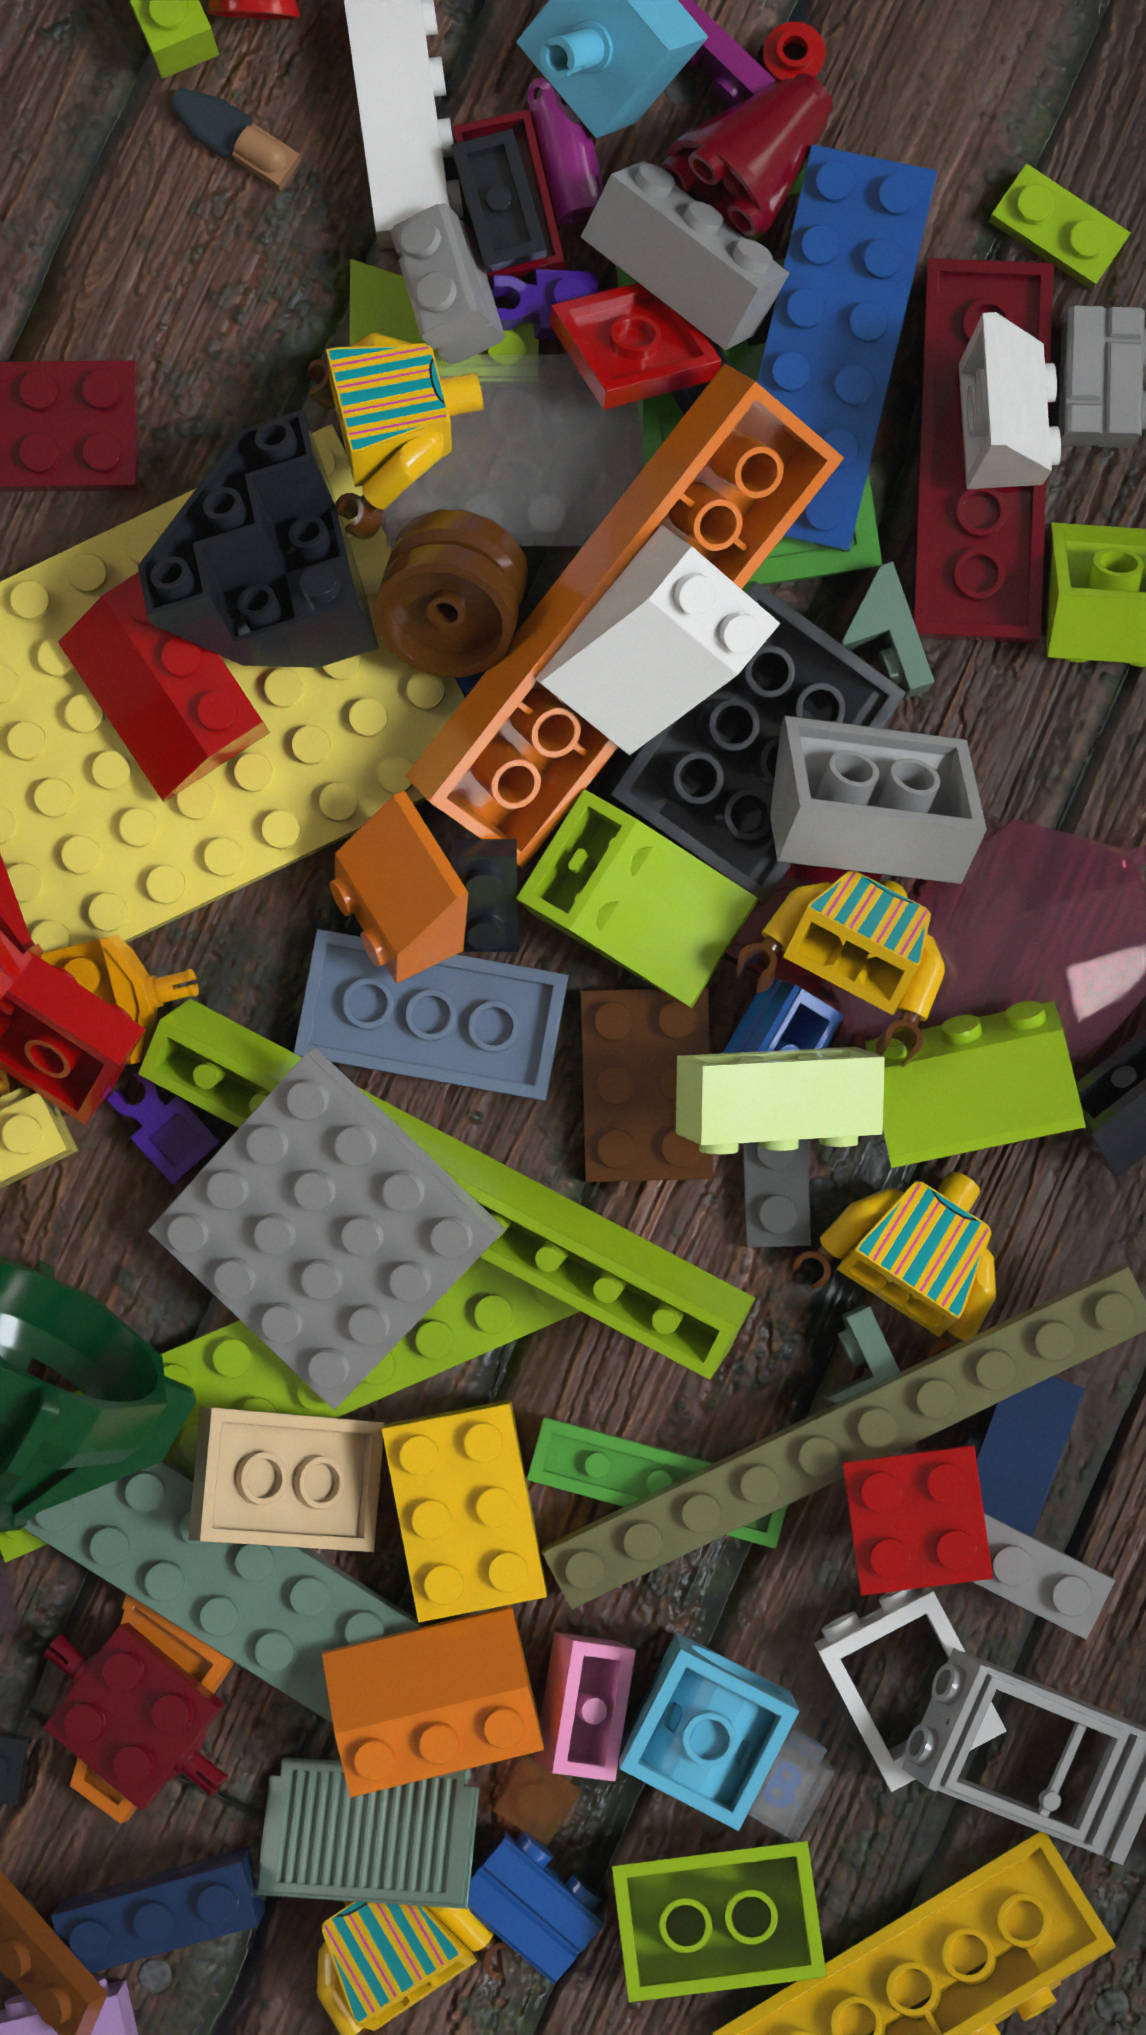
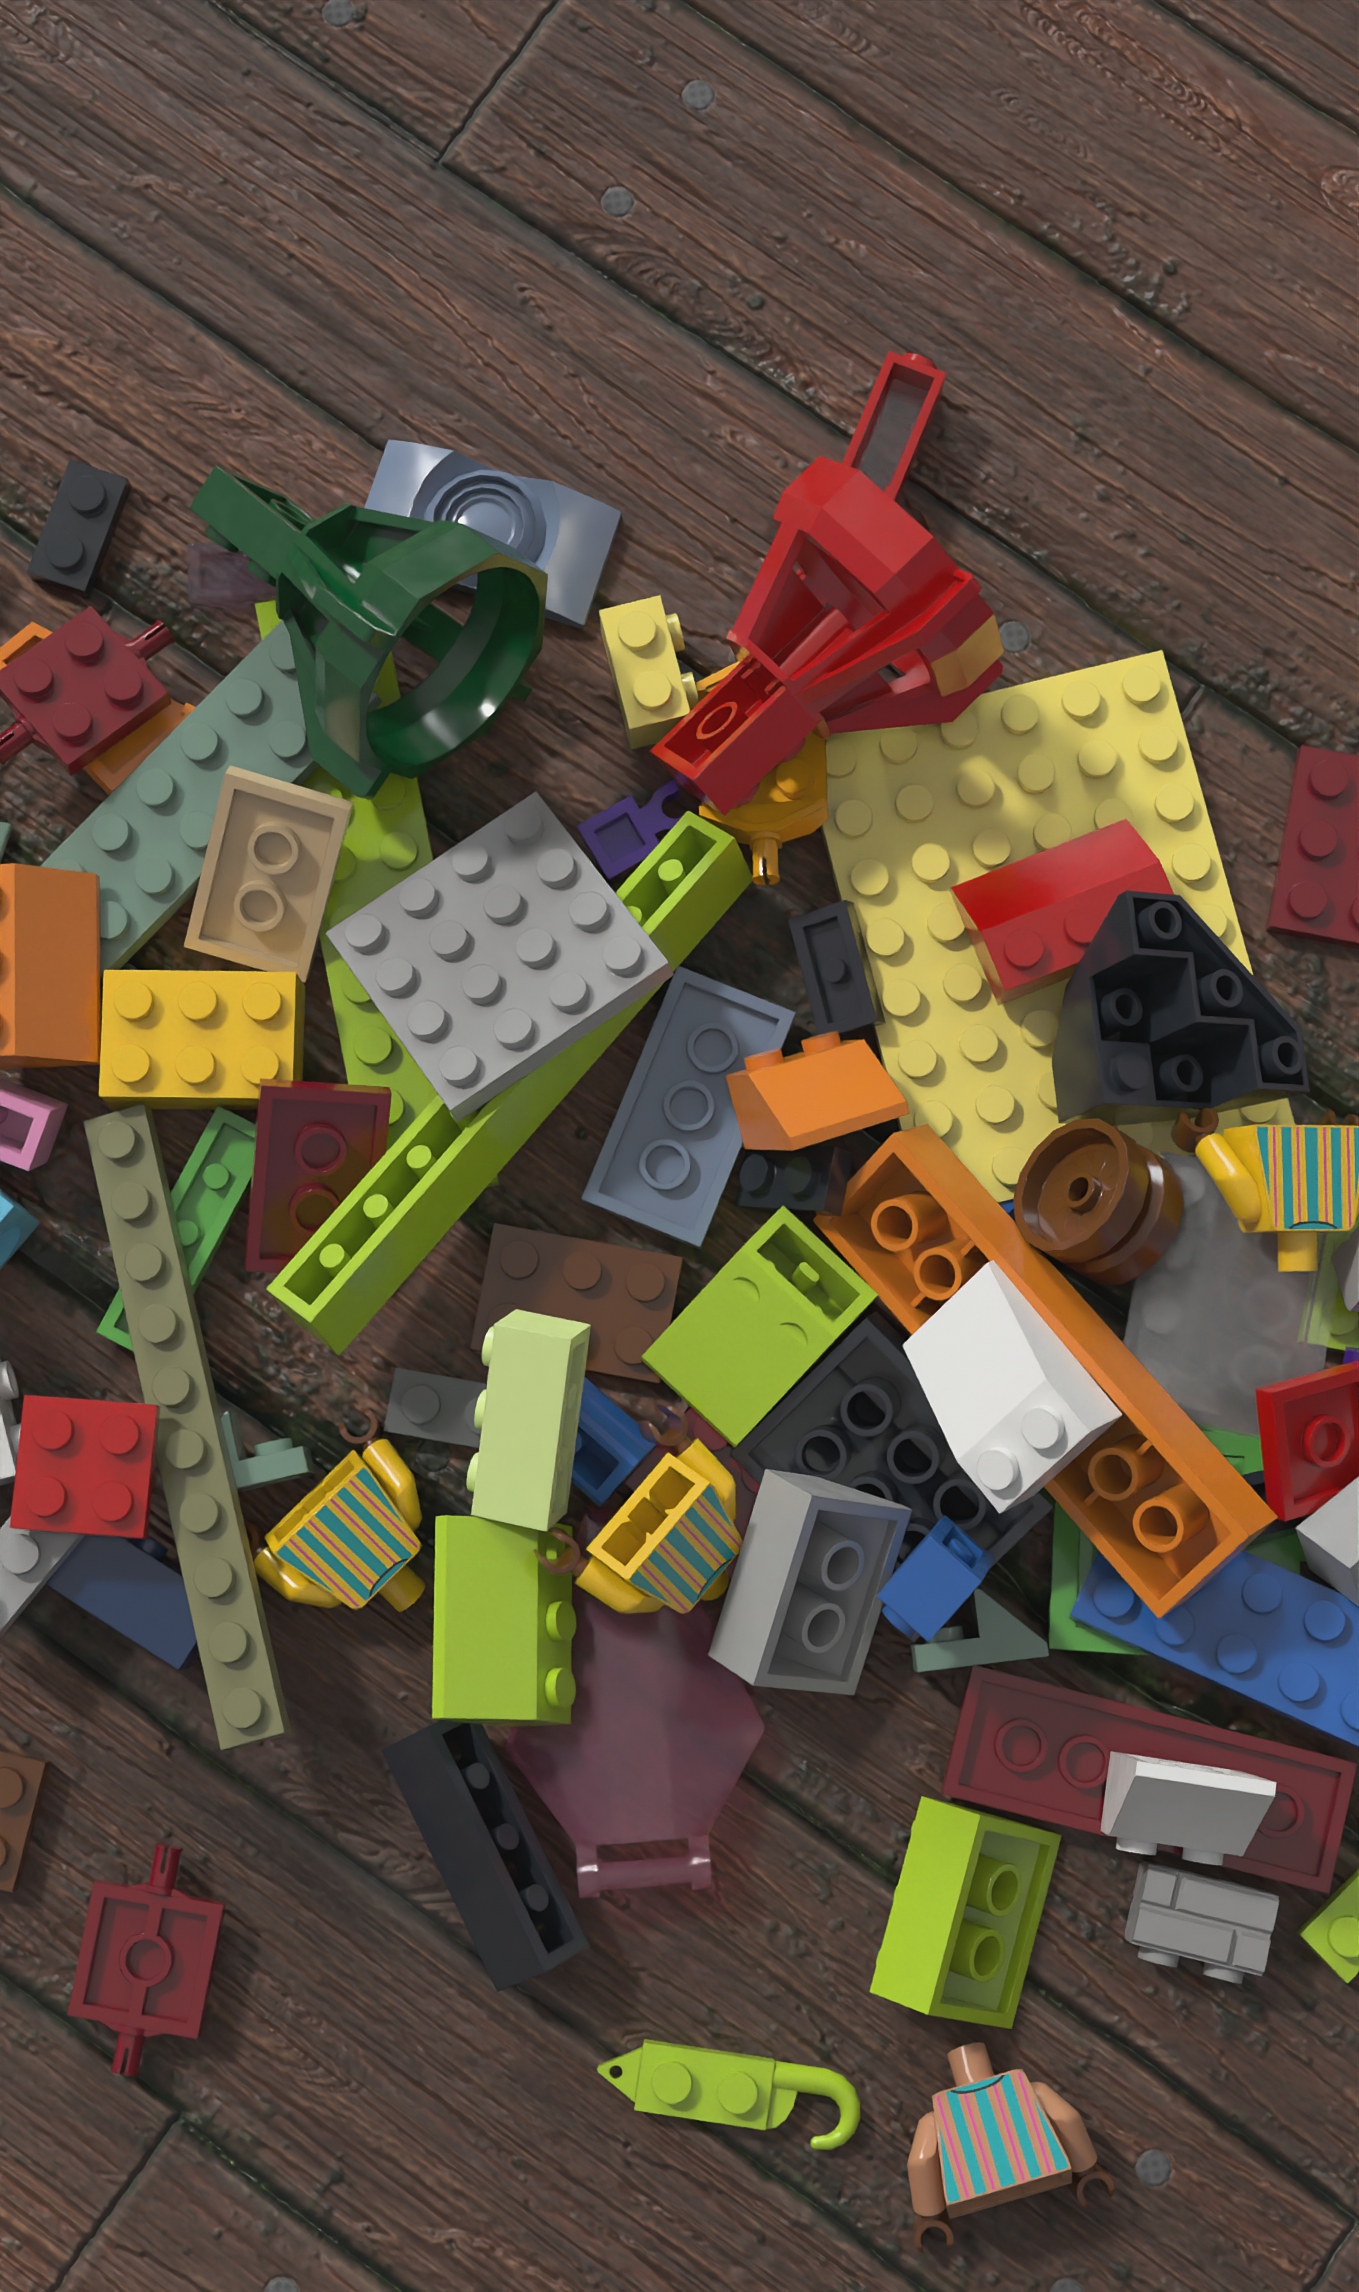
camera: 105 degrees right, 5 degrees down
(265, 898) = (836, 969): none -> black plate
(570, 1371) = (307, 1159): none -> dark red plate
(851, 676) = (934, 1580): none -> blue brick

